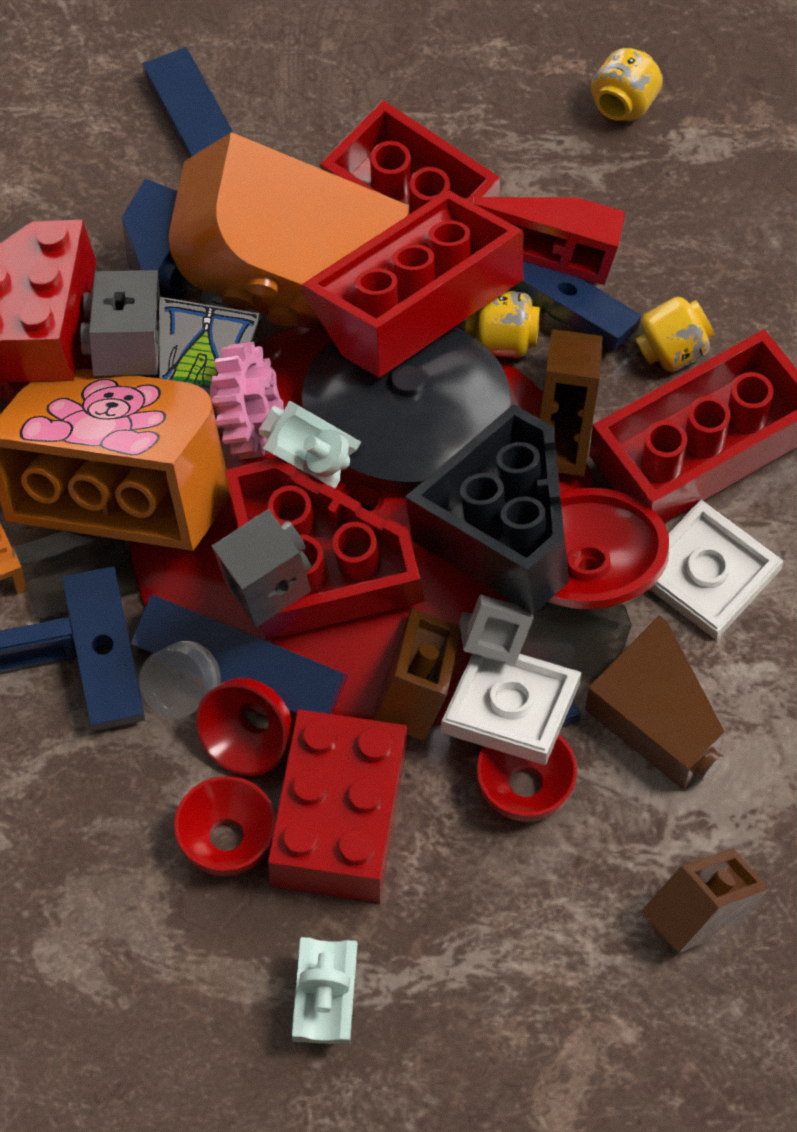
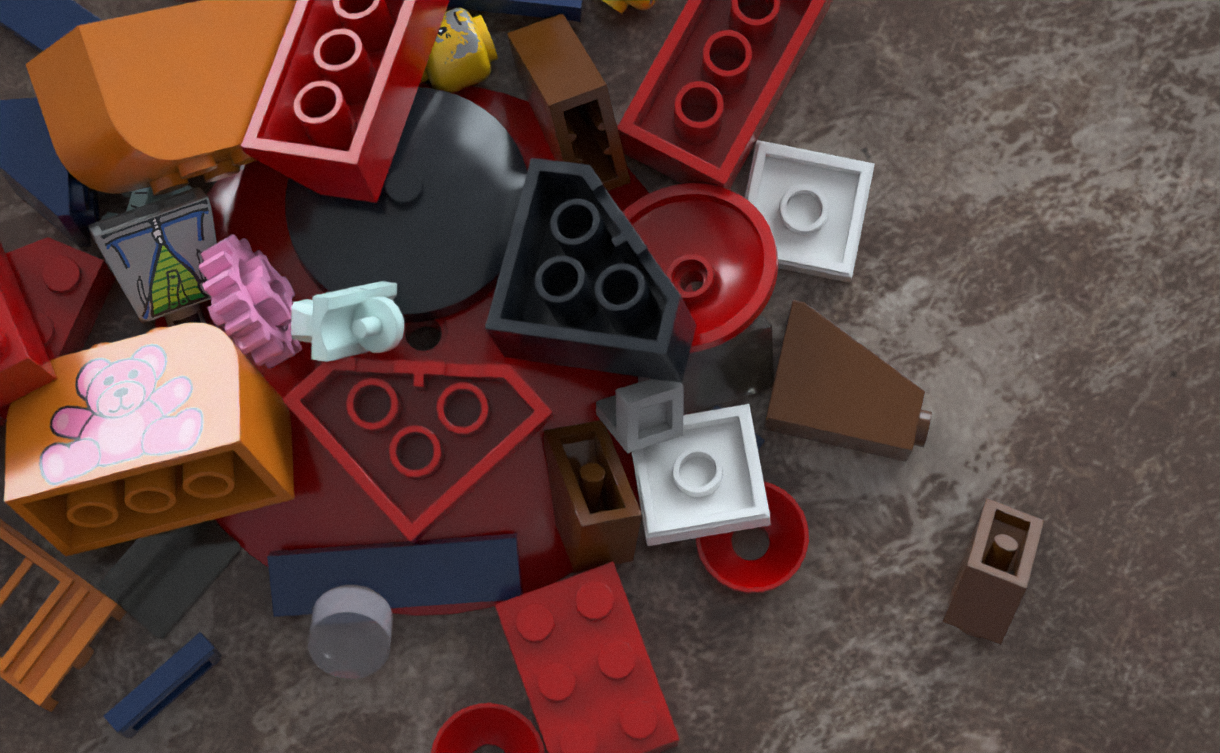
camera: 30 degrees left, 15 degrees up
(96, 622) = (222, 611): dark blue tile -> none
(122, 323) = (73, 286): dark grey brick -> none
(232, 738) = (446, 660): red piece -> none
(264, 566) = (397, 498): dark grey brick -> none

